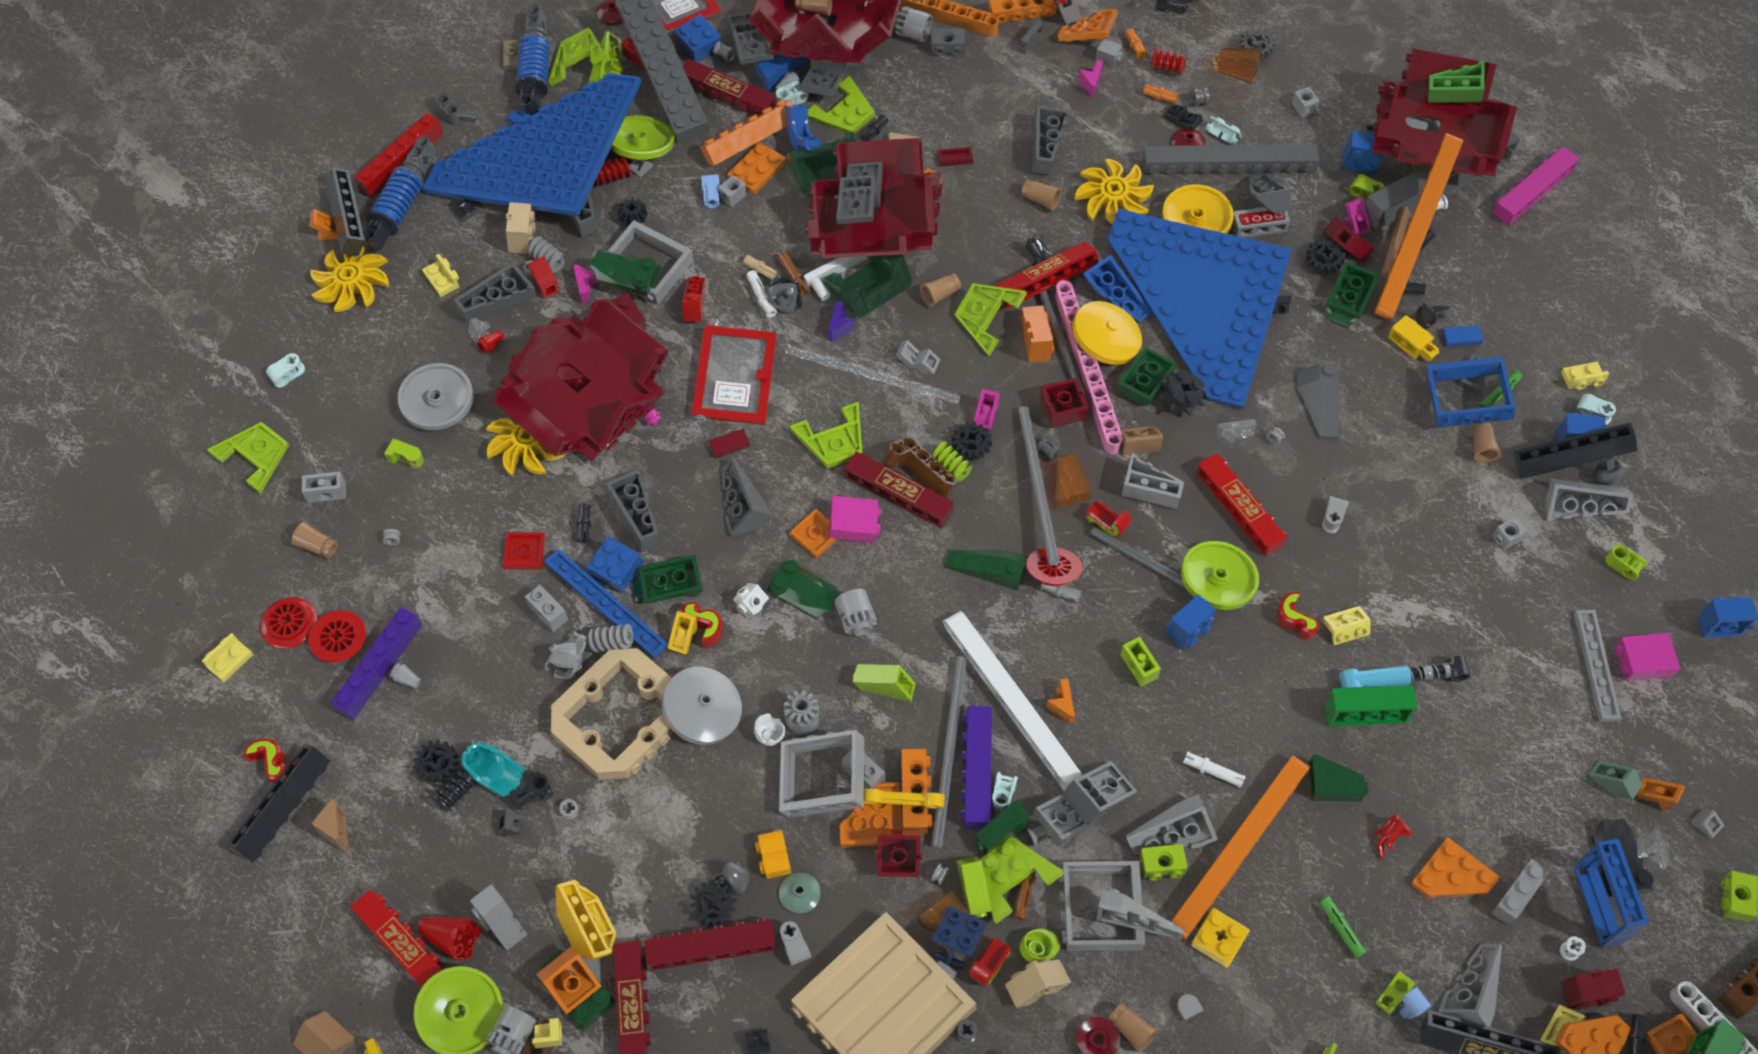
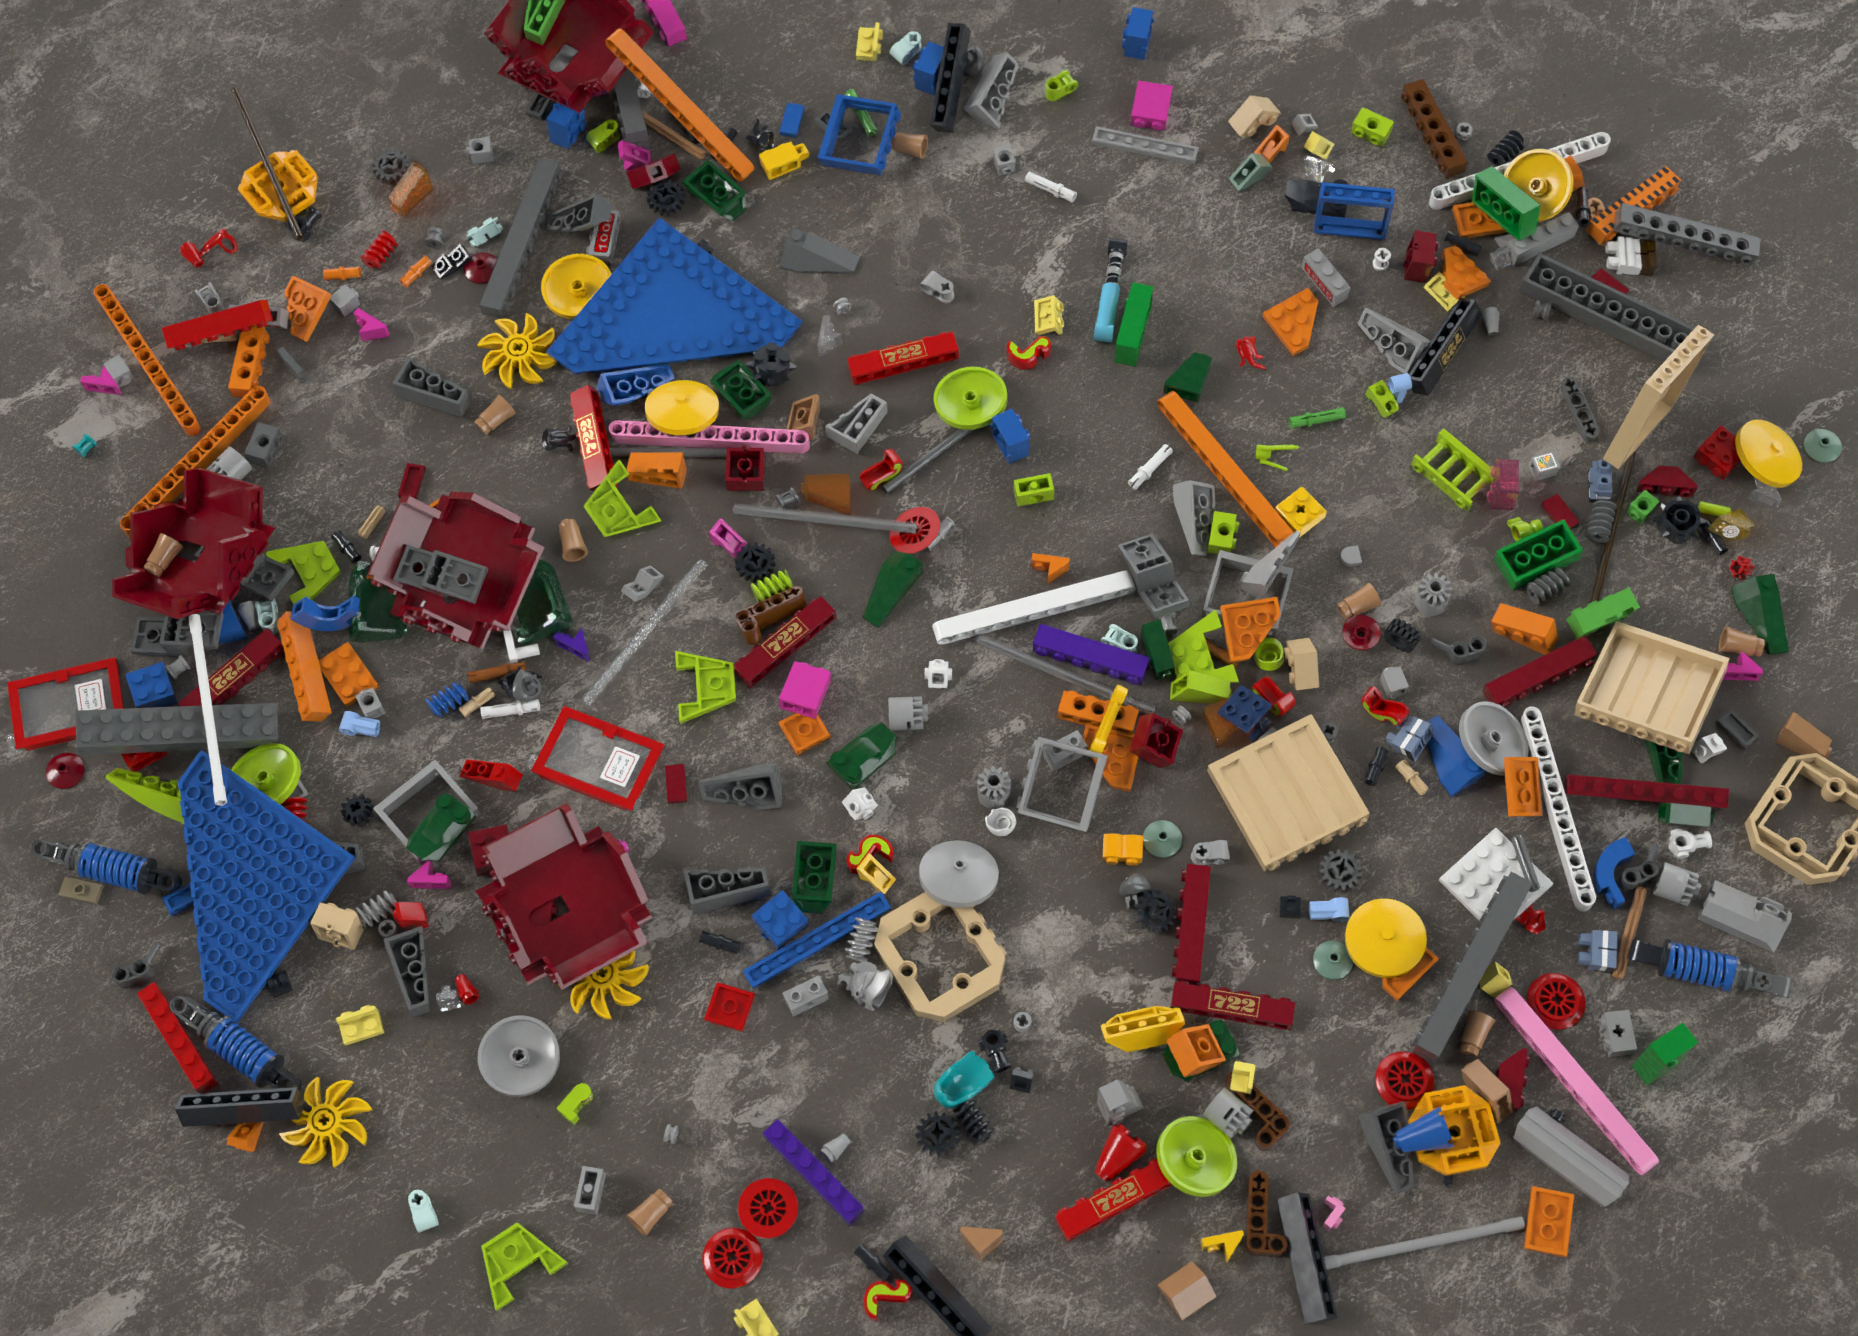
camera: 70 degrees left, 5 degrees up
(300, 739) = (872, 1262): none -> black pin
(573, 50) = (110, 817): lime wing -> none
(608, 96) = (218, 786): none -> white piece
(754, 244) = (447, 699): none -> blue piece
(884, 681) = (982, 710): lime slope -> none
(907, 629) = (938, 674): none -> white brick
(1058, 911) = (1248, 625): none -> orange plate
(1277, 882) = (1264, 452): none -> lime plant
(1500, 587) = (1047, 185): none -> white pin
(1686, 844) = (1319, 145): none -> light yellow panel
(1689, 760) = (1252, 114): none -> tan brick

